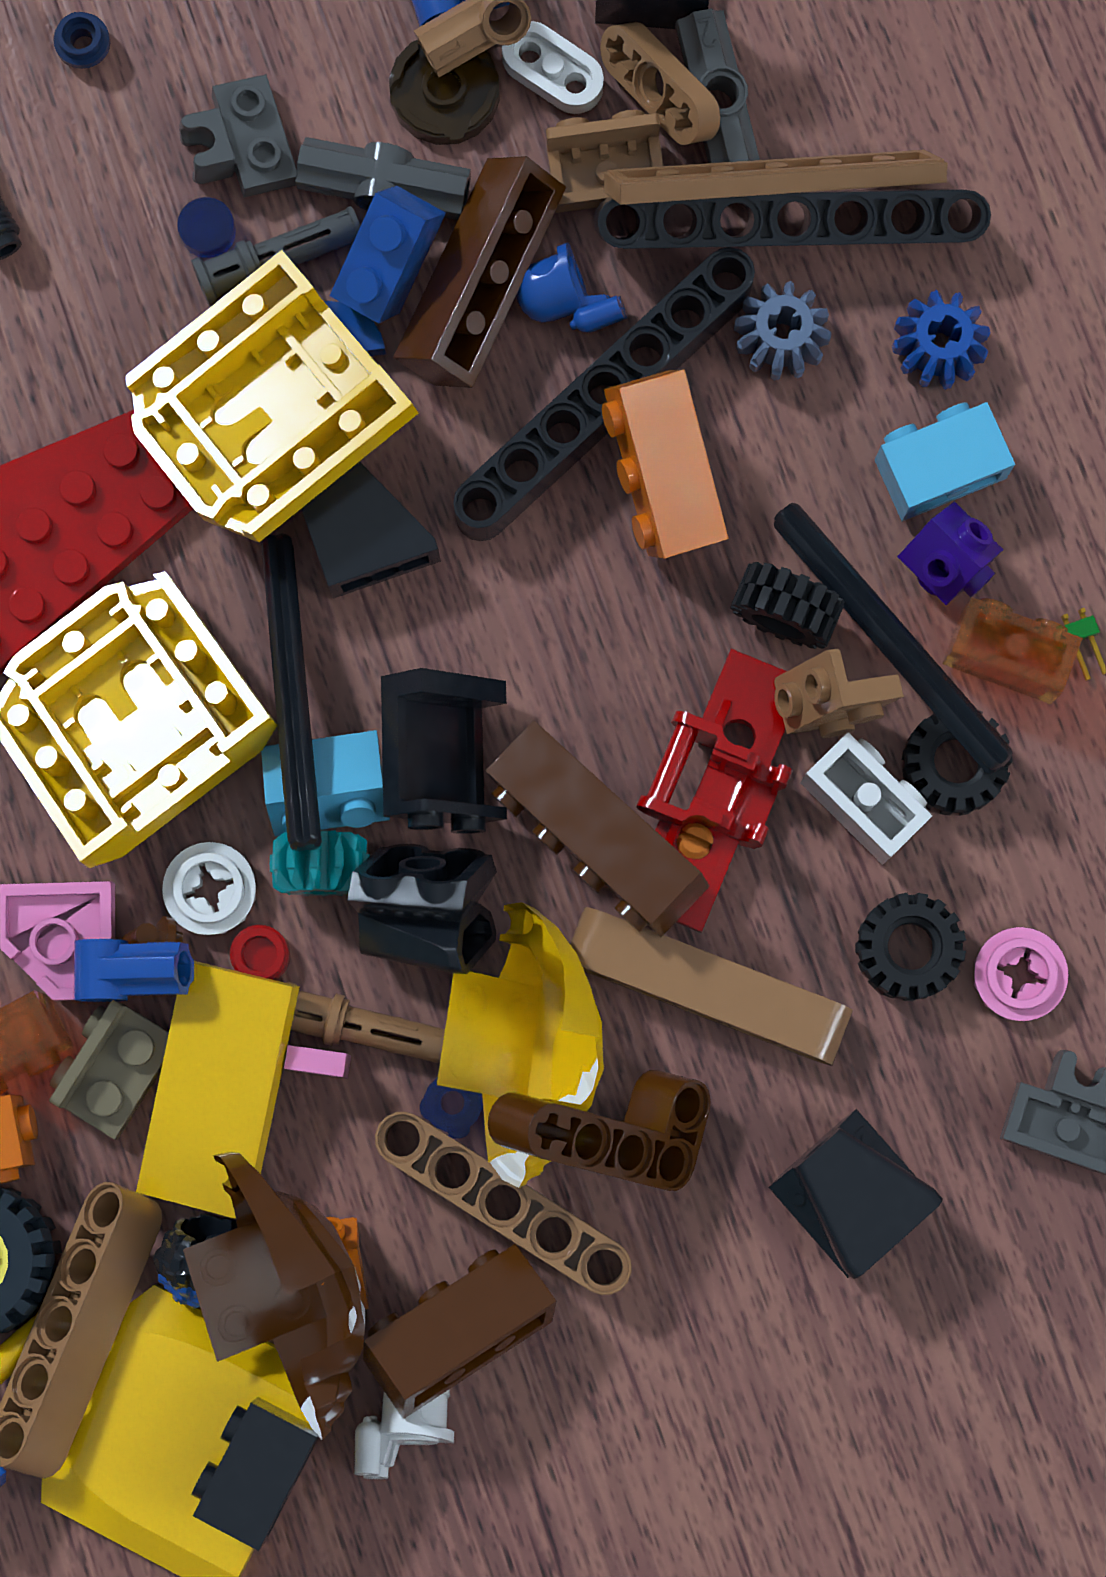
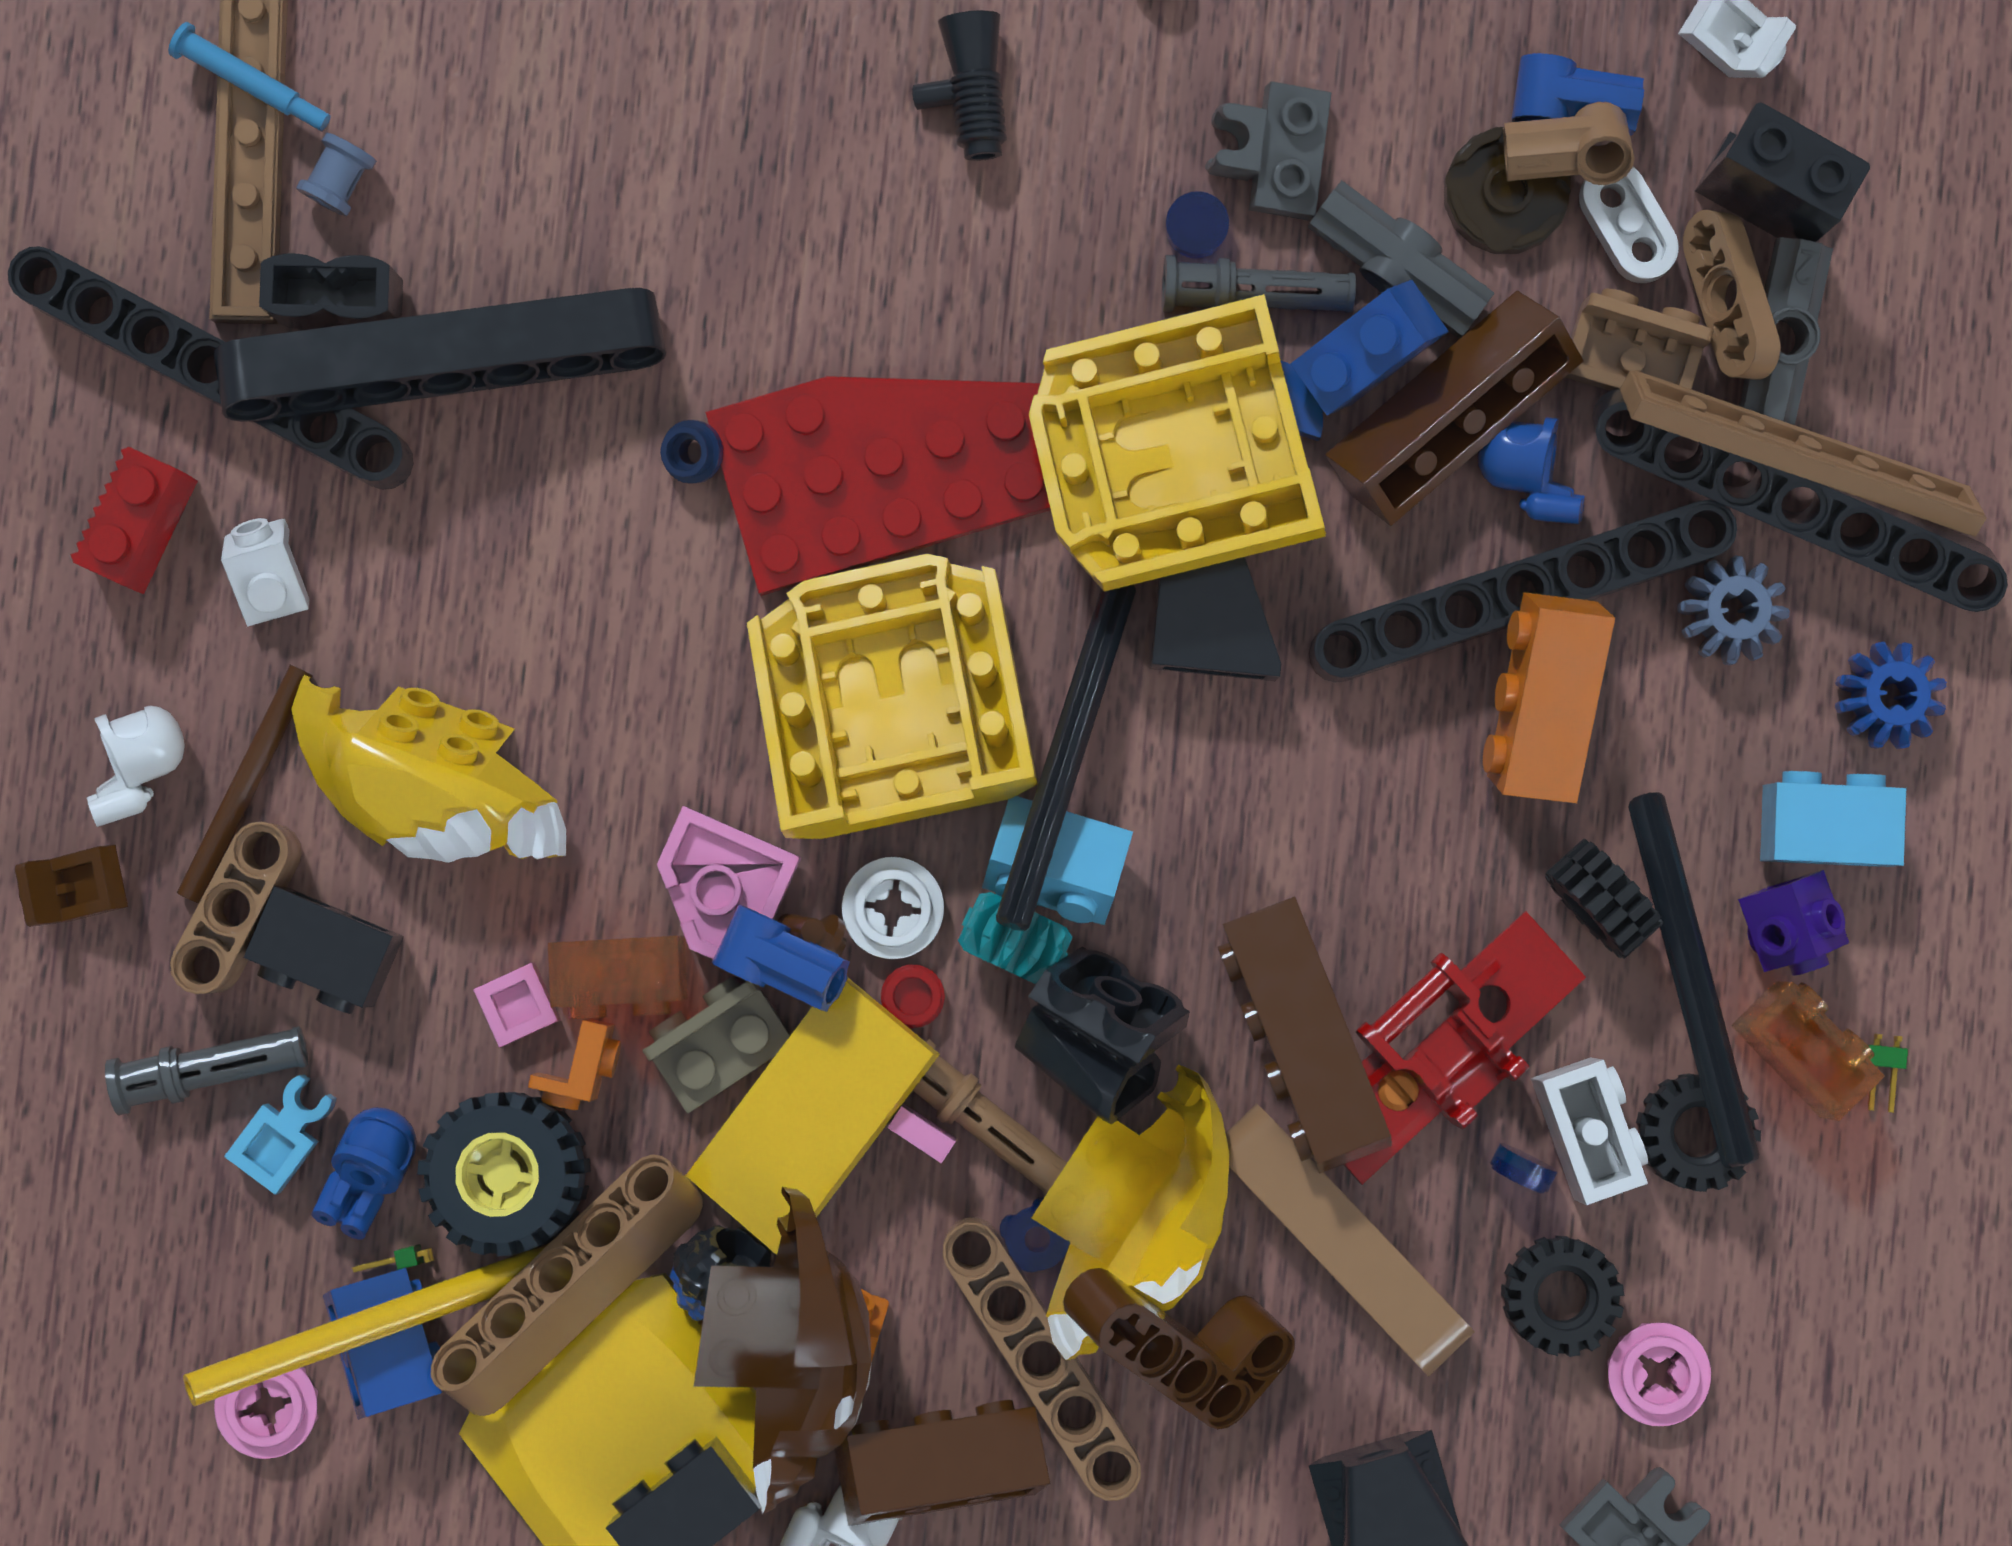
camera: 25 degrees right, 5 degrees up
(437, 749) = (1183, 881): black panel -> none
(822, 698) = (1598, 1009): medium nougat bracket -> none
(828, 857) = (1523, 1168): none -> clear blue tile

